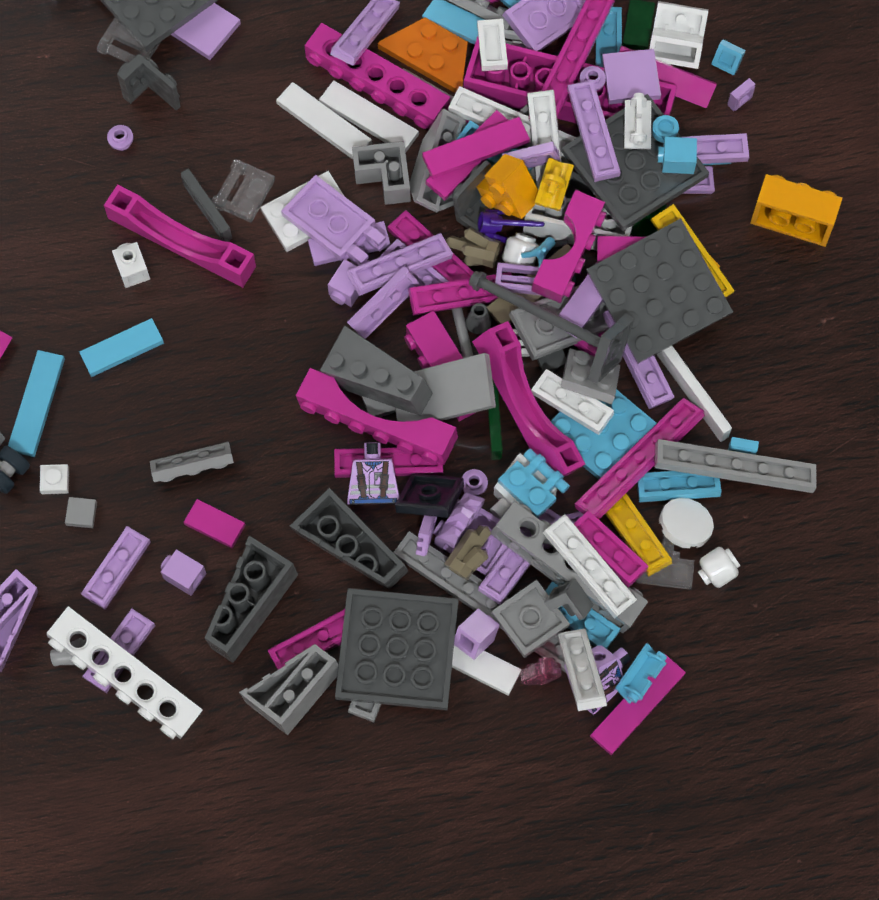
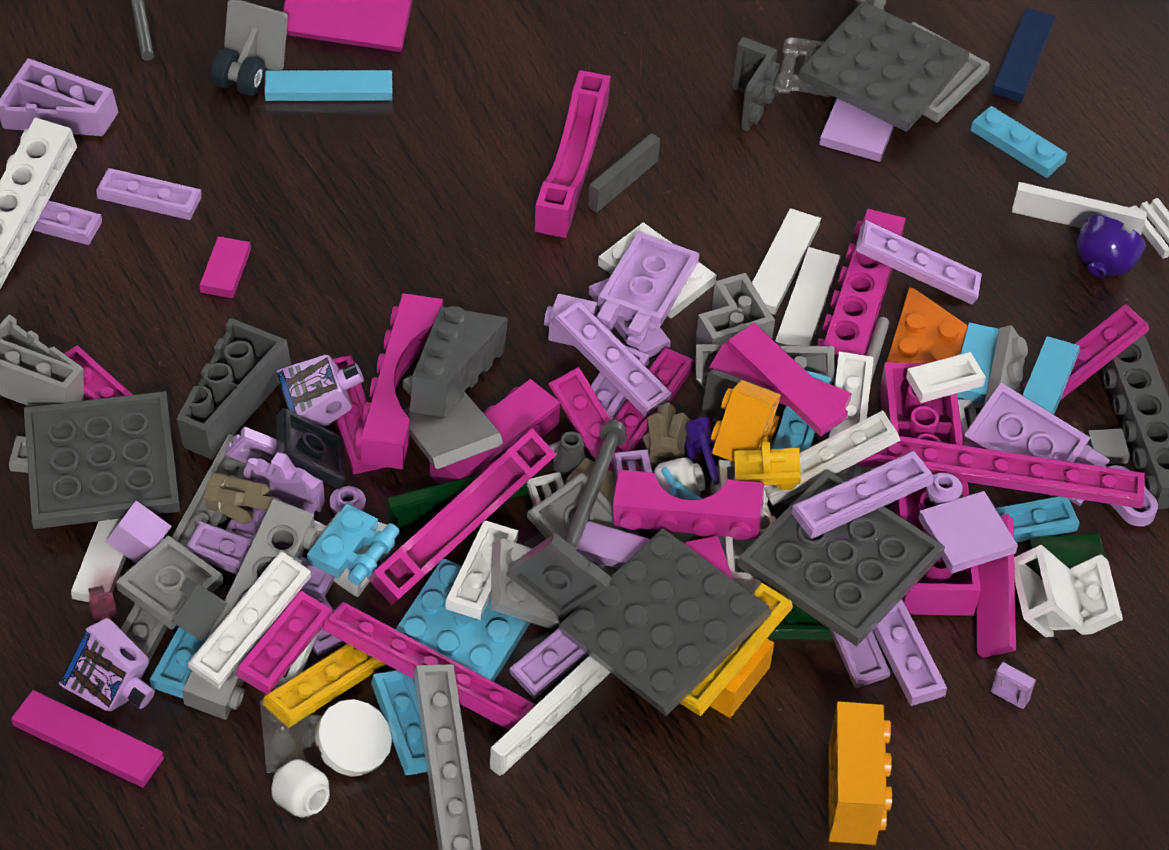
camera: 70 degrees right, 20 degrees down
(54, 479) = (242, 120): white plate -> none
(81, 512) = (207, 149): light grey tile -> none
(121, 347) = (421, 141): medium azure tile -> none
(123, 143) = (682, 85): lavender plate -> none
(130, 264) = (523, 123): white brick -> none
(182, 572) = (154, 247): lavender brick -> none
(191, 462) = (294, 227): light grey plate -> none
(249, 598) = (131, 308): dark grey wedge -> none
(250, 193) = (658, 204): clear plate -> none
(383, 303) = (553, 353): lavender tile -> none
(536, 155) = (796, 434): lavender tile -> none
(582, 670) = (97, 625): white tile -> none
(635, 682) = (121, 717): medium azure hinge -> none
(637, 123) = (892, 538): white hinge -> none
(664, 127) = (899, 572): medium azure tile -> none
(678, 155) = (859, 583): medium azure brick -> none
(728, 57) = (1064, 661): medium azure tile -> none
(743, 445) = (482, 785): medium azure tile -> none

